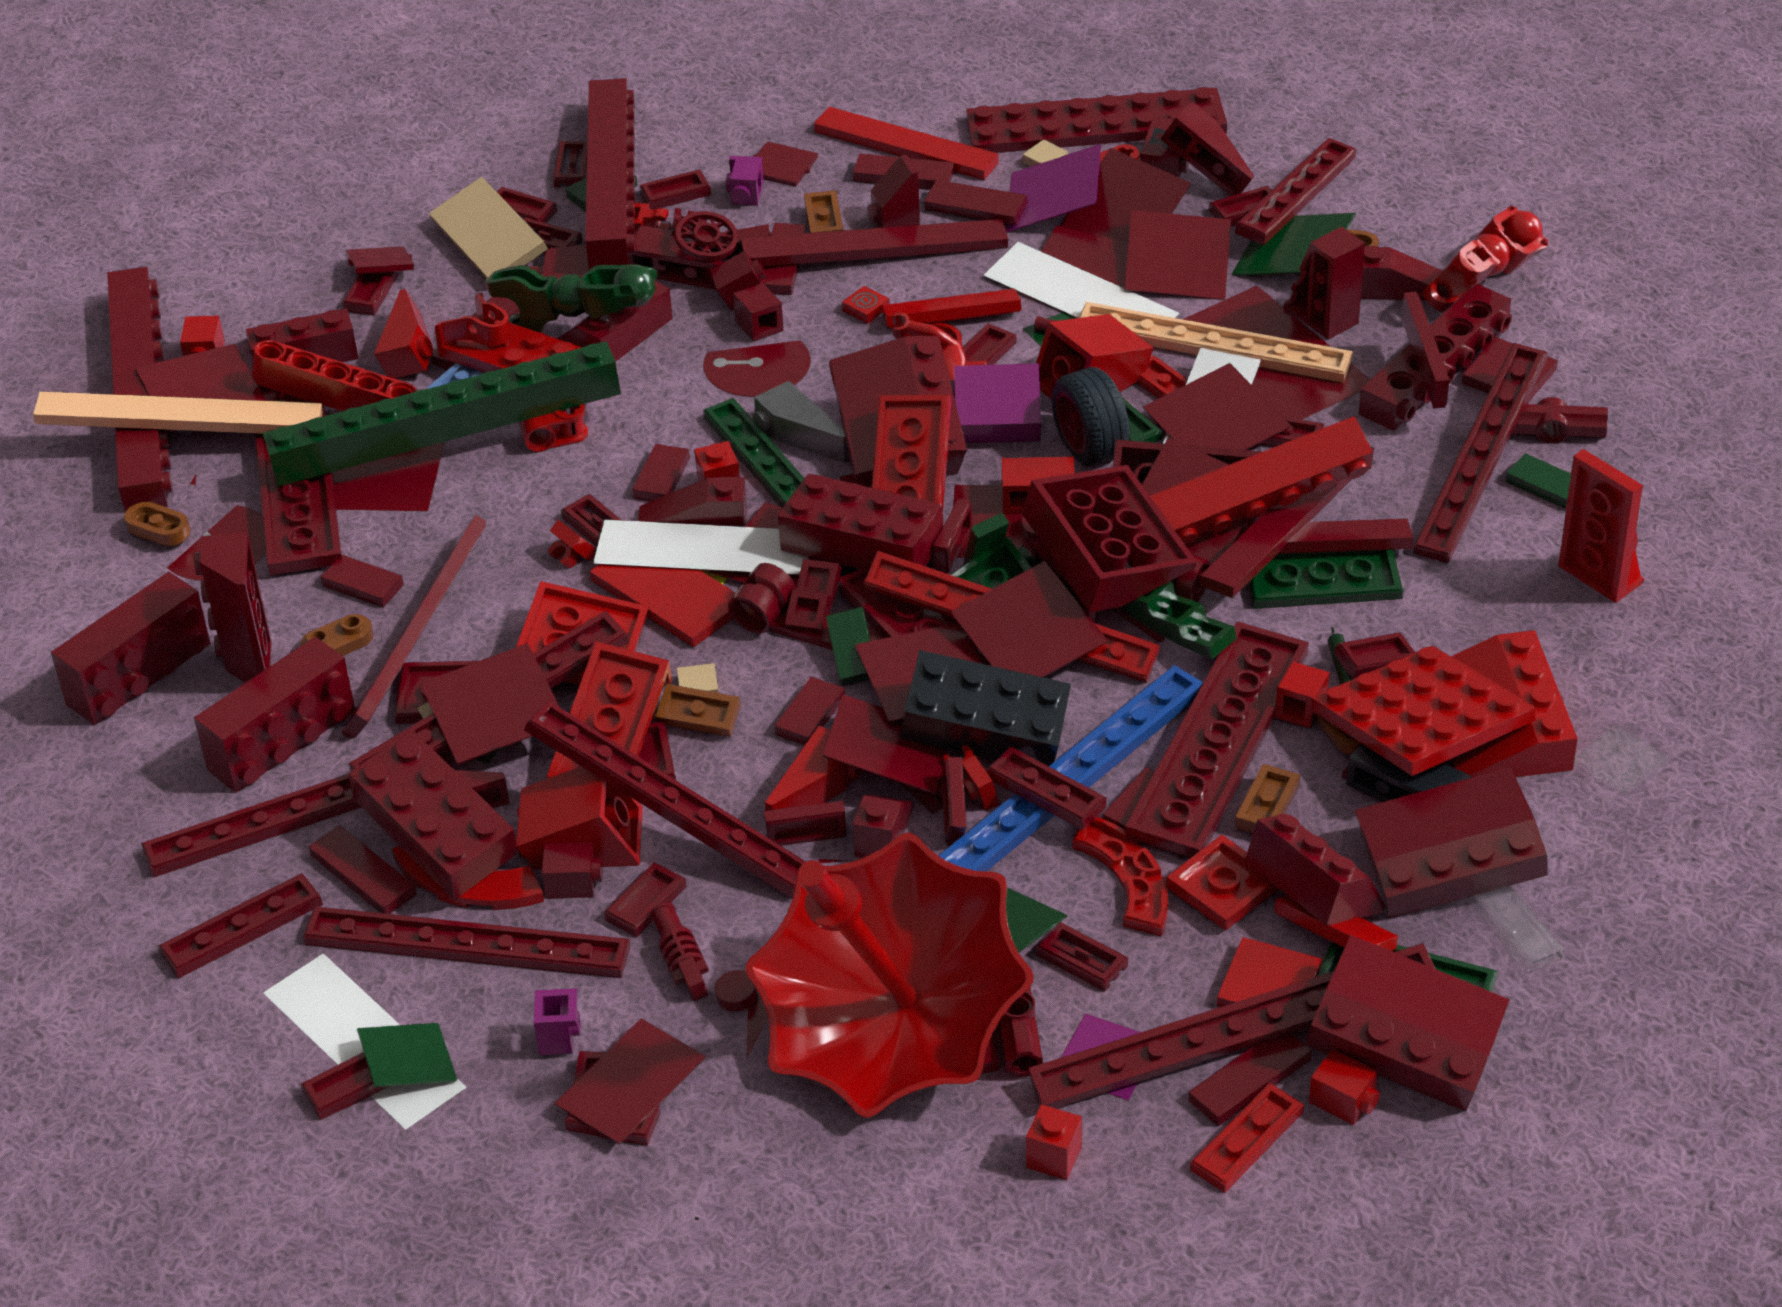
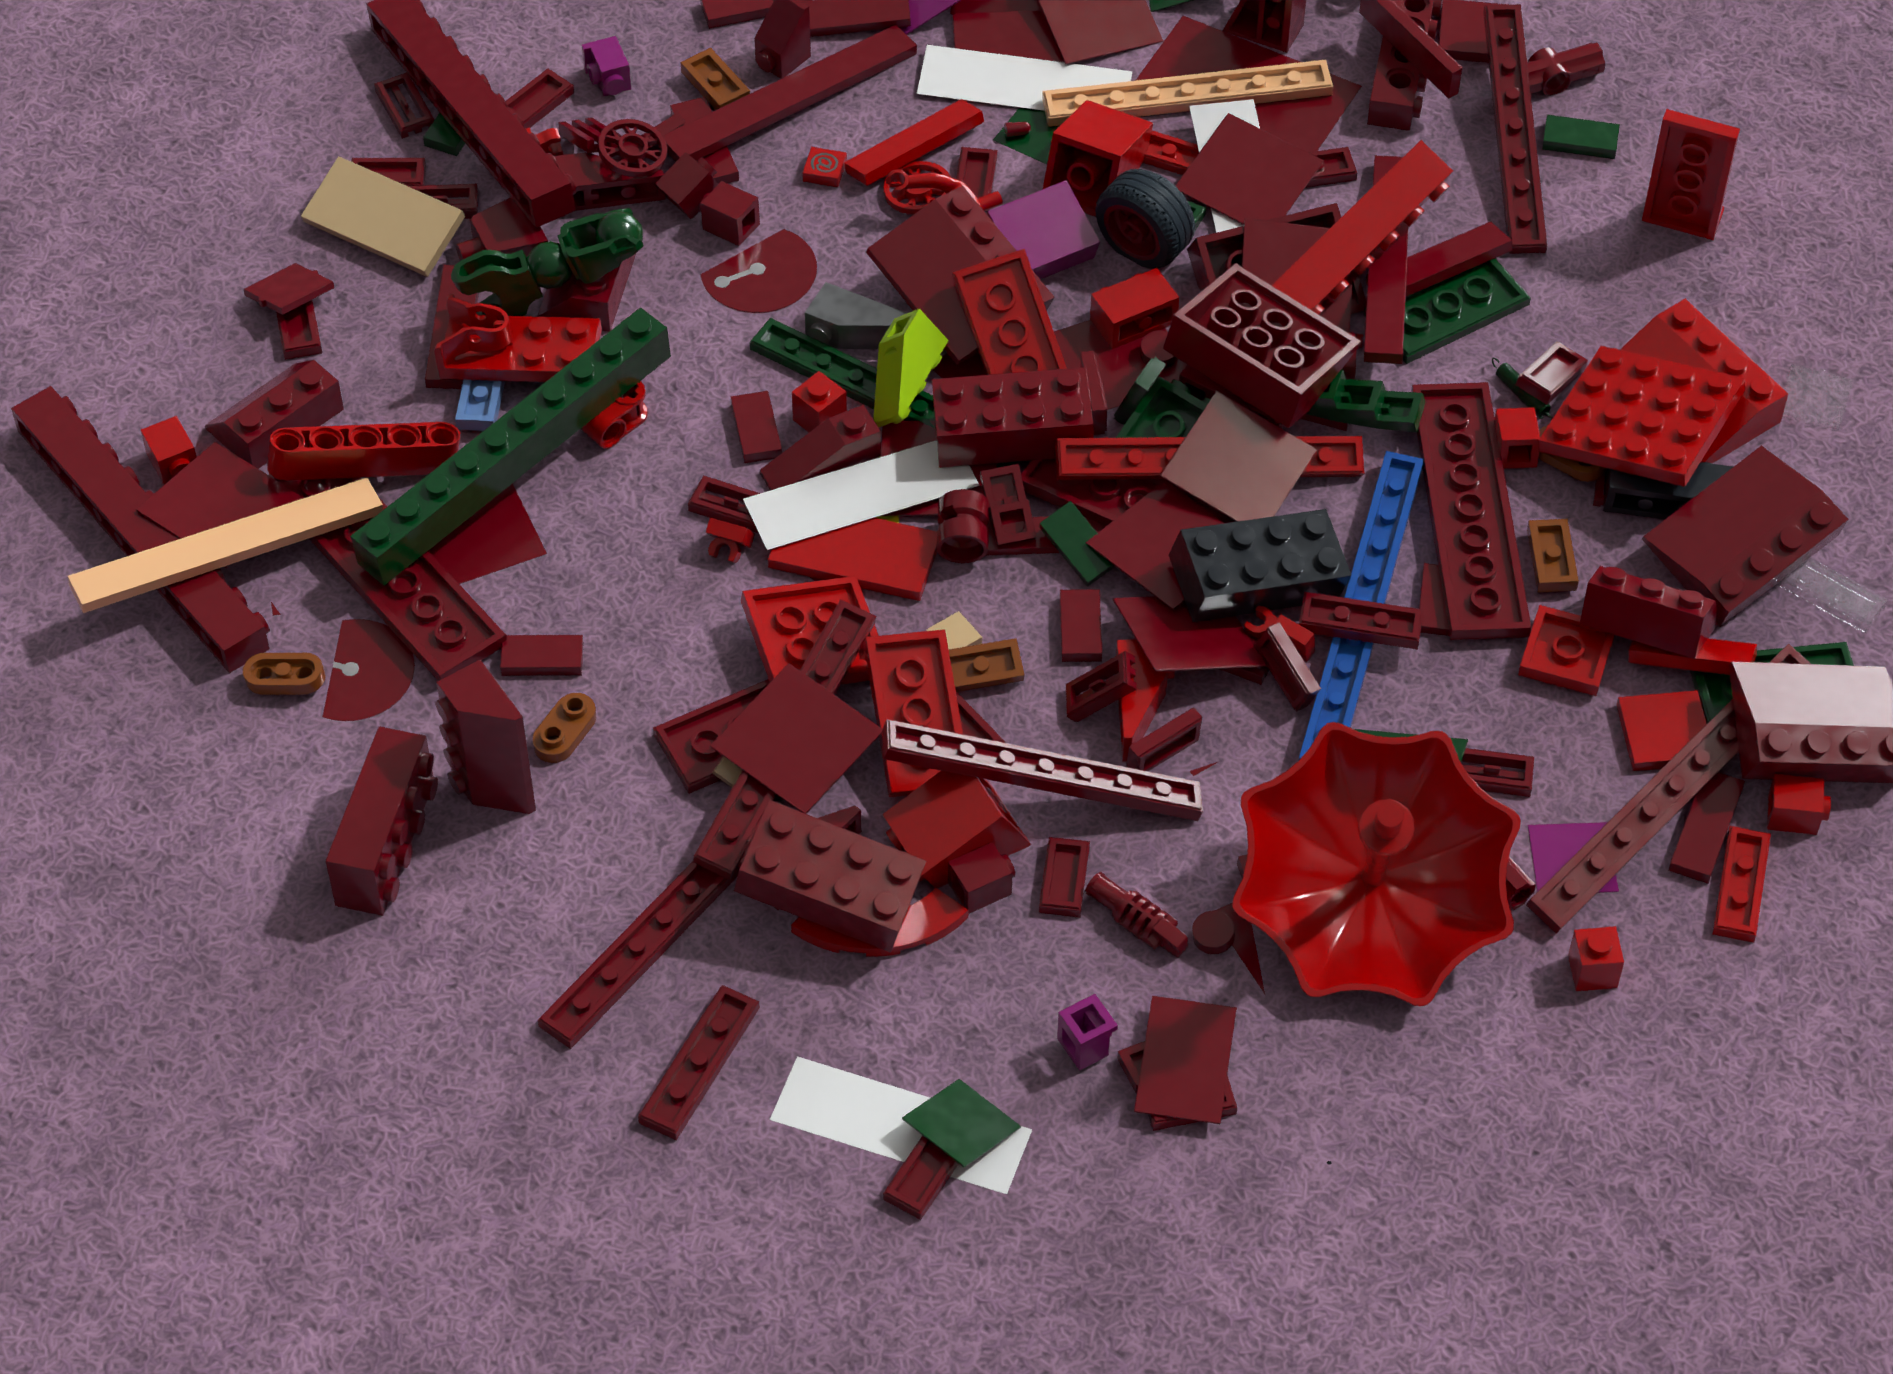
camera: 30 degrees left, 10 degrees up
(275, 714) = (585, 834): dark red brick -> none
(362, 870) = (775, 958): dark red tile -> none
(405, 340) = (394, 375): red slope -> none
(413, 628) = (639, 686): dark red tile -> none
(467, 942) = (927, 988): dark red tile -> none
(779, 758) = (1100, 692): none -> dark red tile
(785, 163) = (631, 27): dark red piece -> none
(806, 452) = (904, 361): none -> lime slope
(879, 822) = (1234, 716): dark red slope -> none
(1135, 870) = (1483, 670): red tile -> none

